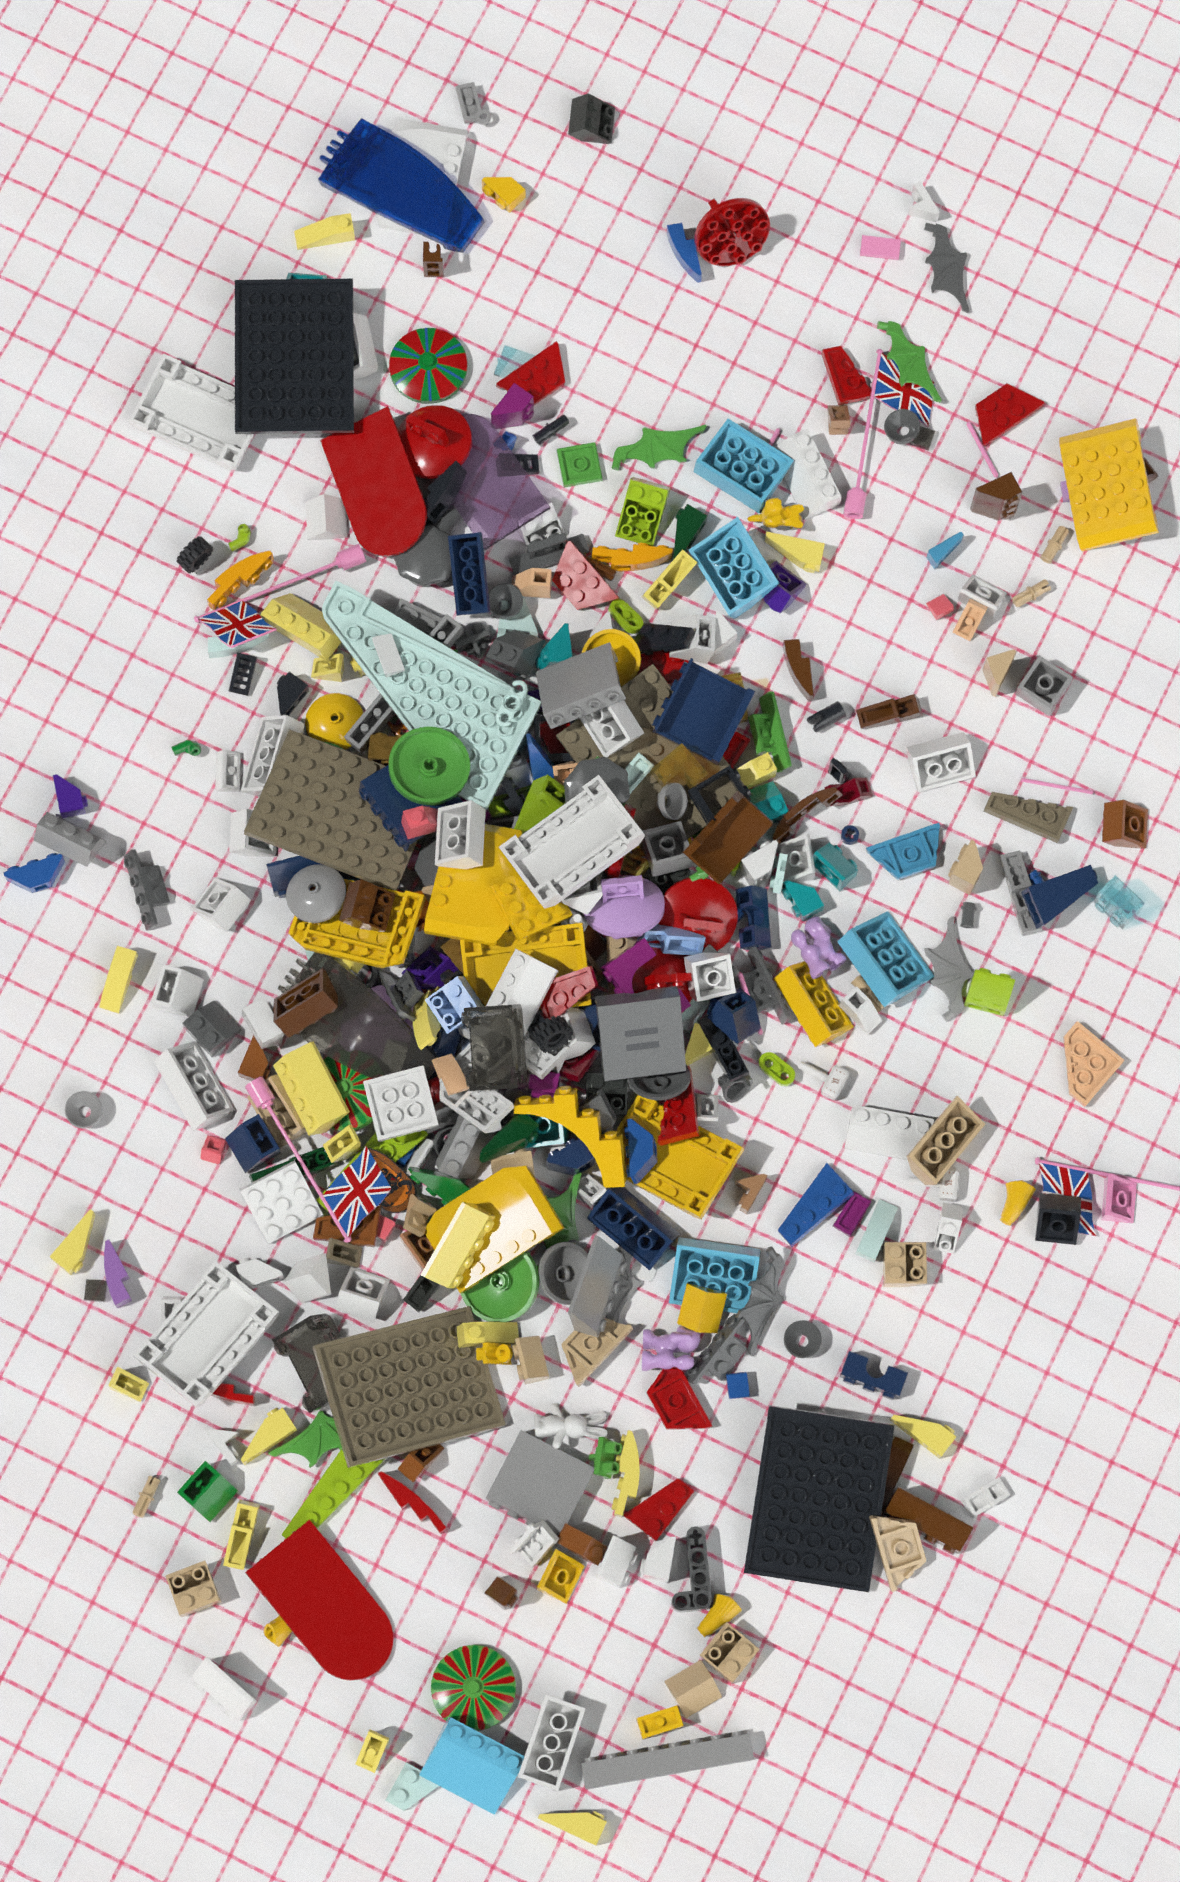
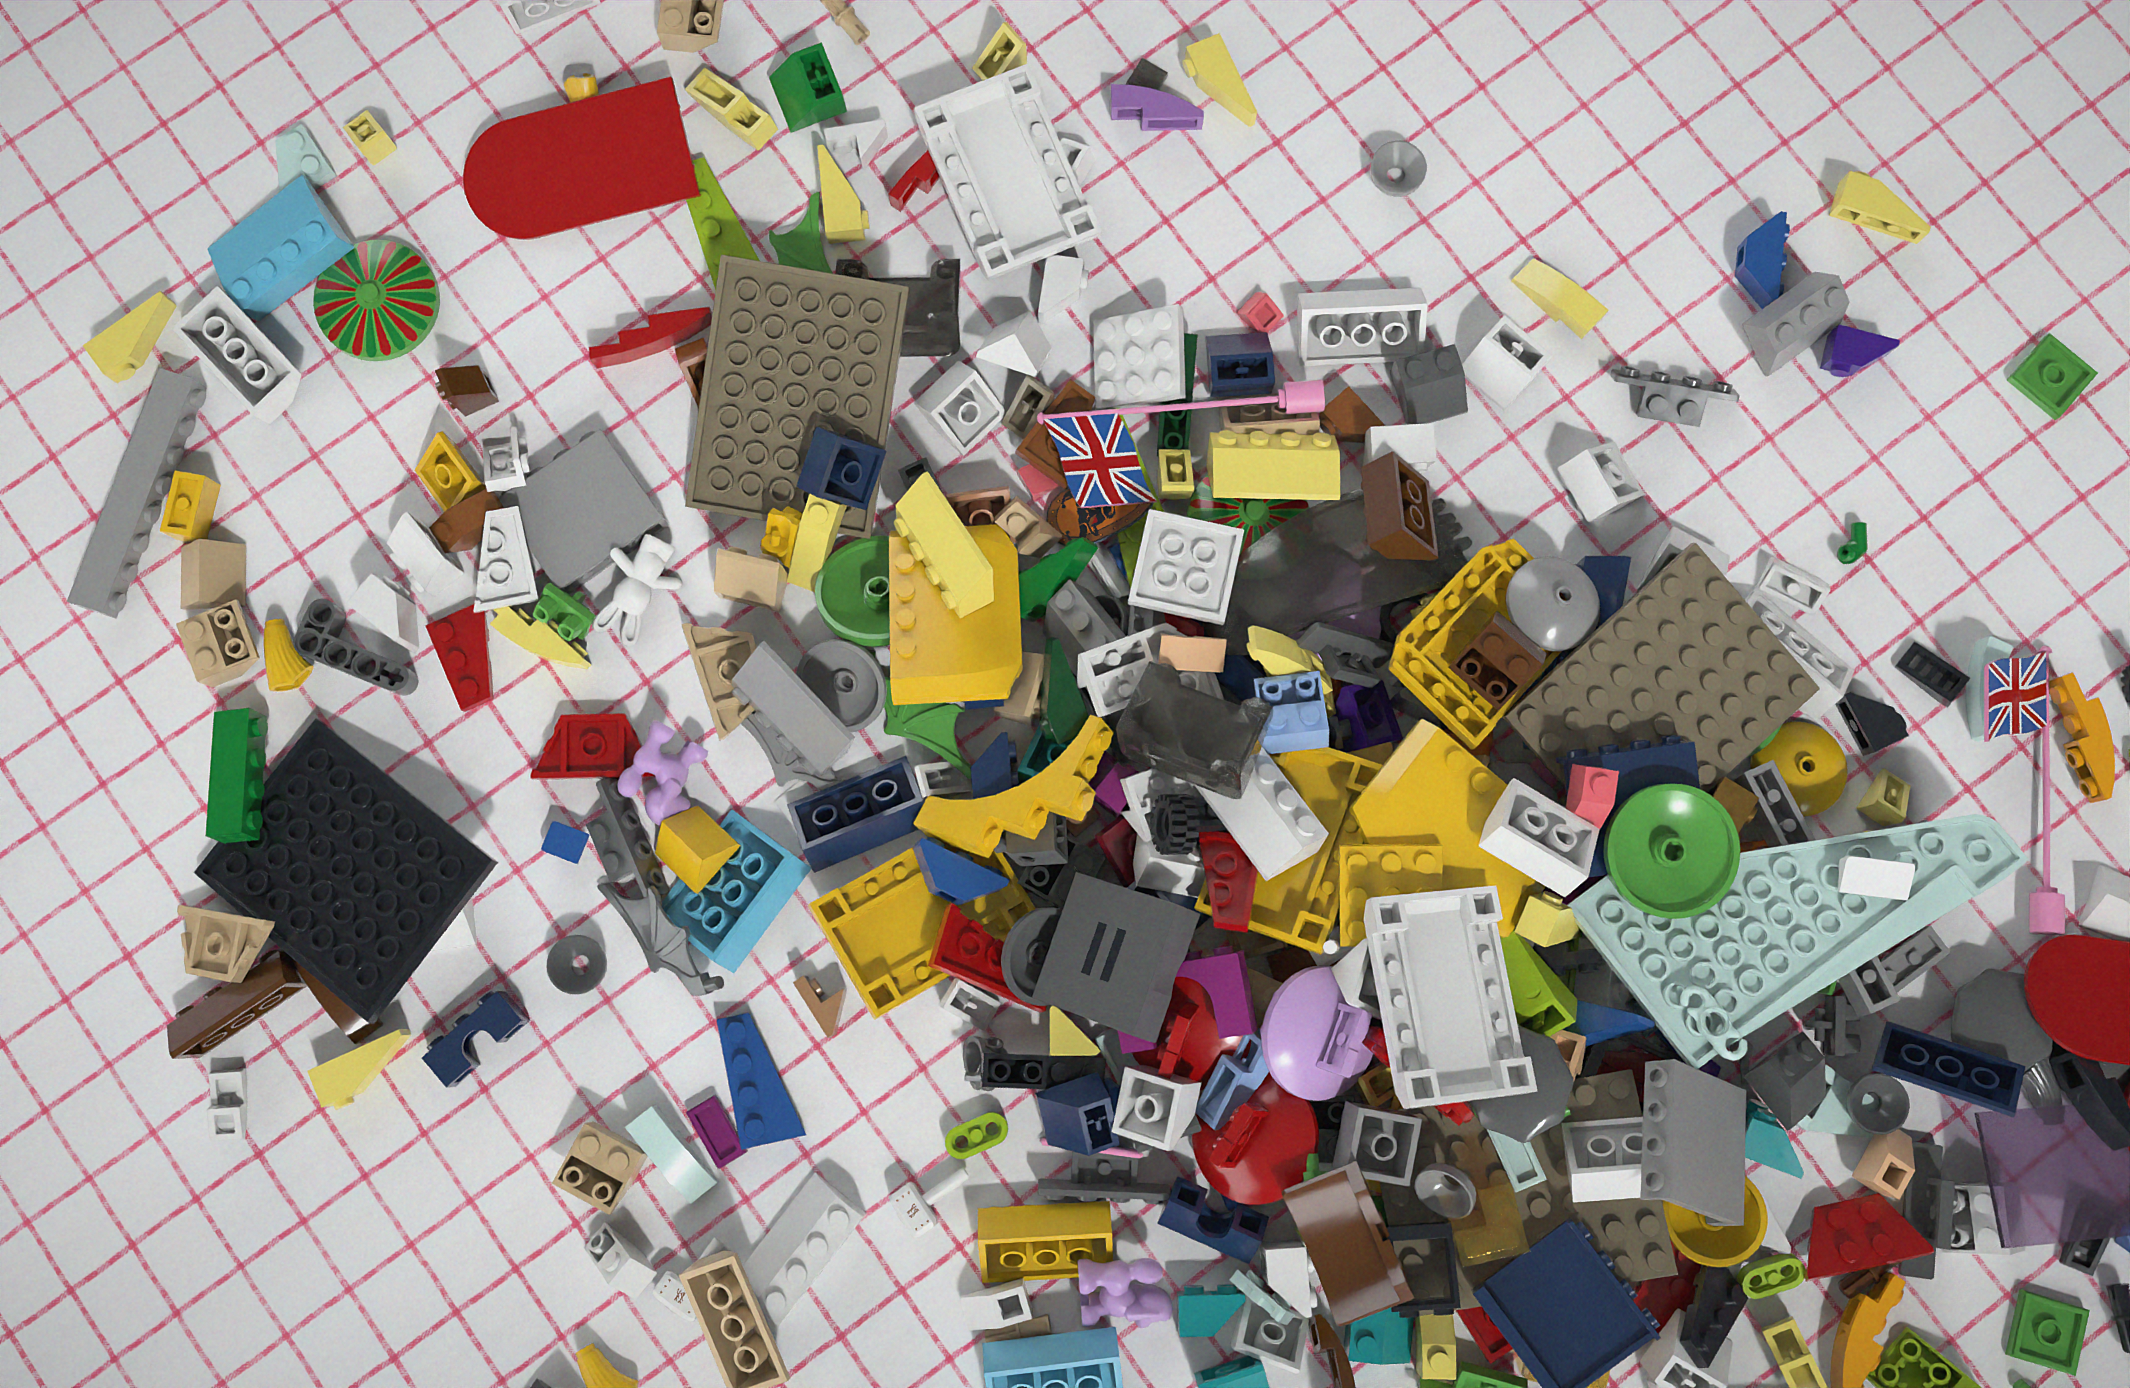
camera: 120 degrees right, 5 degrees up
(27, 682) = (2052, 376): none -> bright green tile
(301, 624) = (1980, 785): light yellow slope -> none
(439, 1337) = (841, 468): none -> dark blue slope
(501, 814) = (1547, 920): none -> light yellow slope
(595, 1505) = (505, 564): none -> white wing
(800, 1596) = (236, 775): none -> green brick

